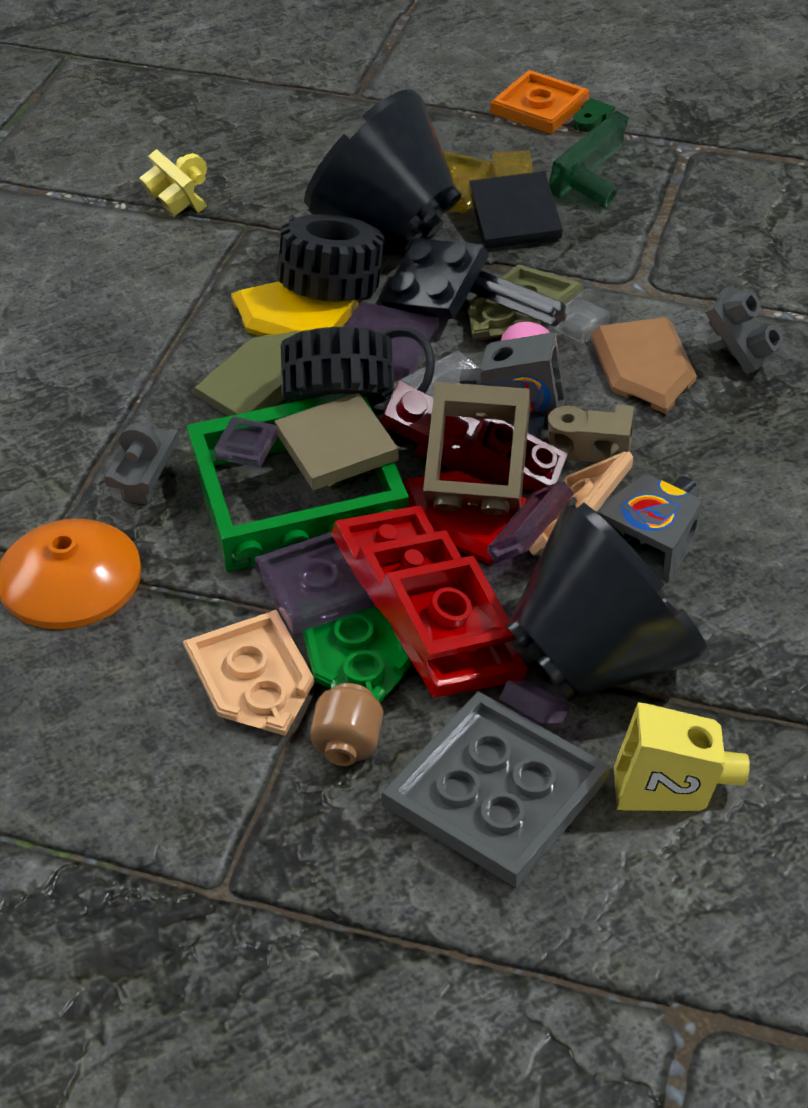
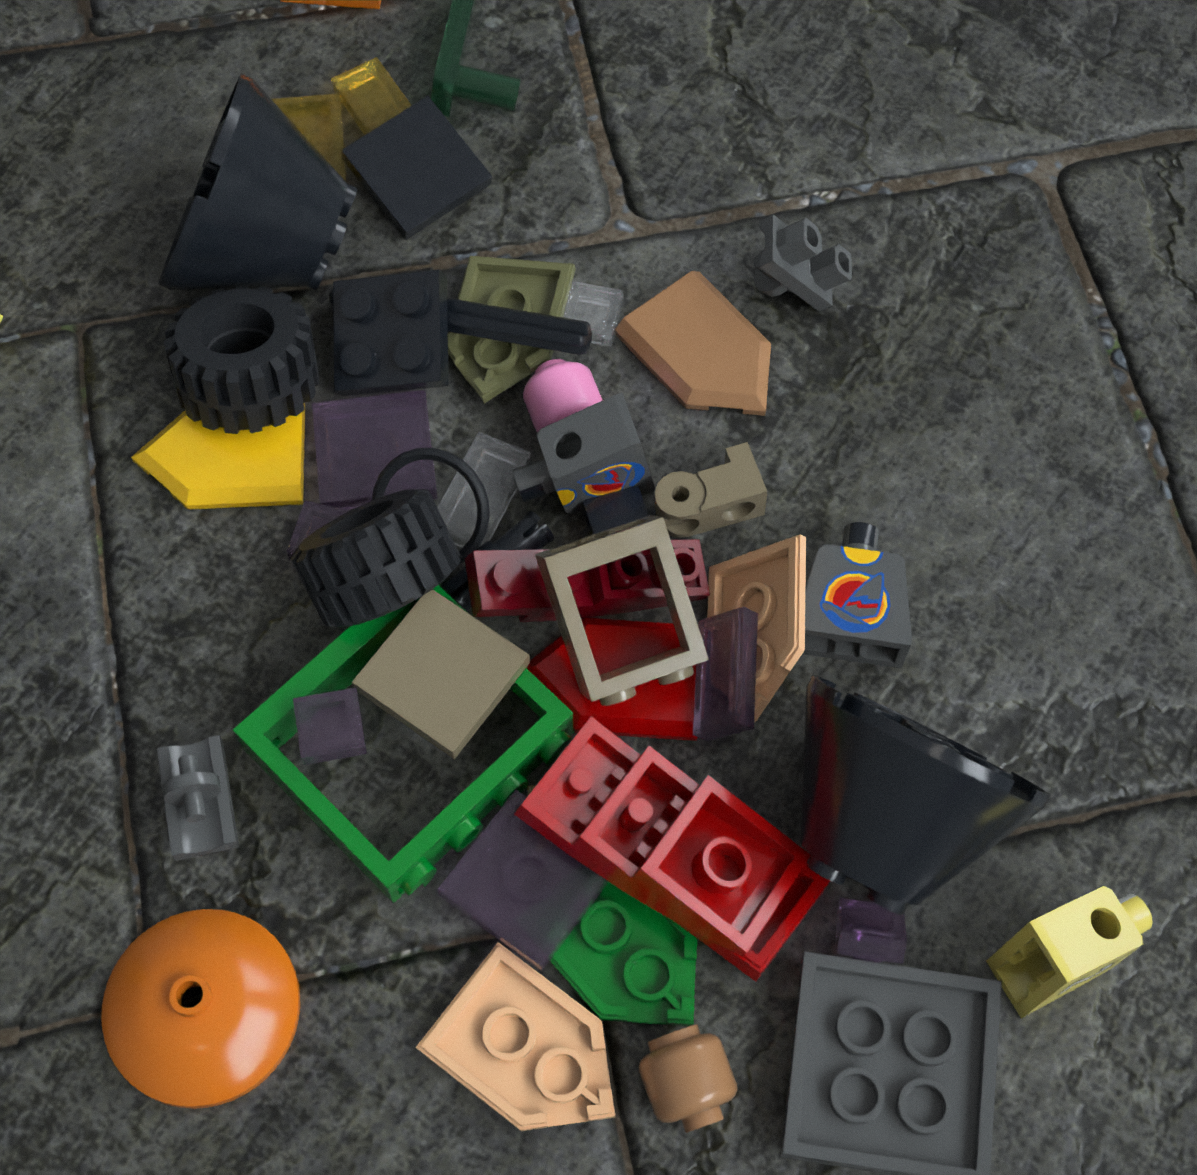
camera: 30 degrees left, 20 degrees up
(247, 378) = (247, 587): olive tile -> none

